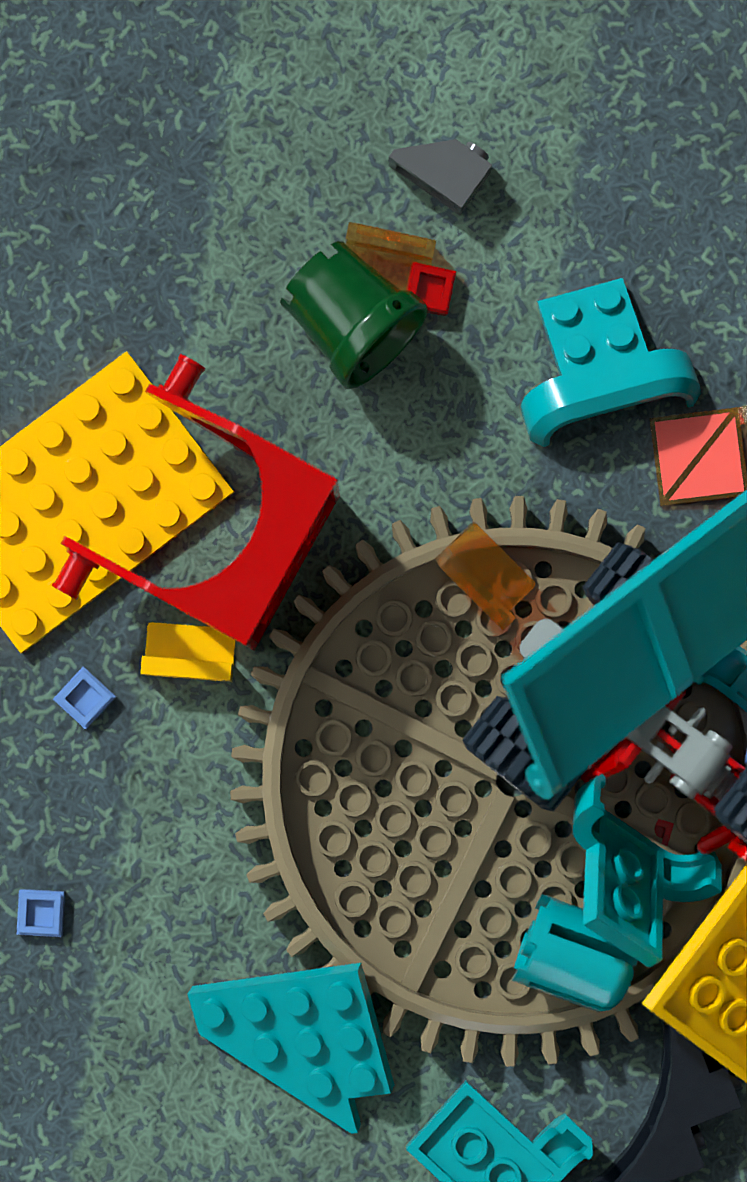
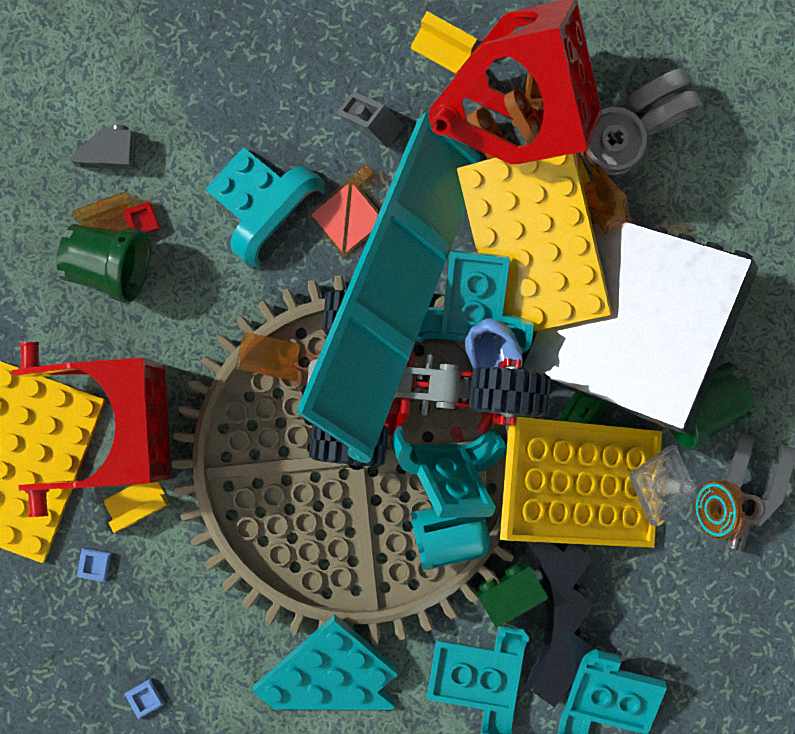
camera: 30 degrees left, 0 degrees up
(605, 1083) = (511, 594): none -> dark green slope

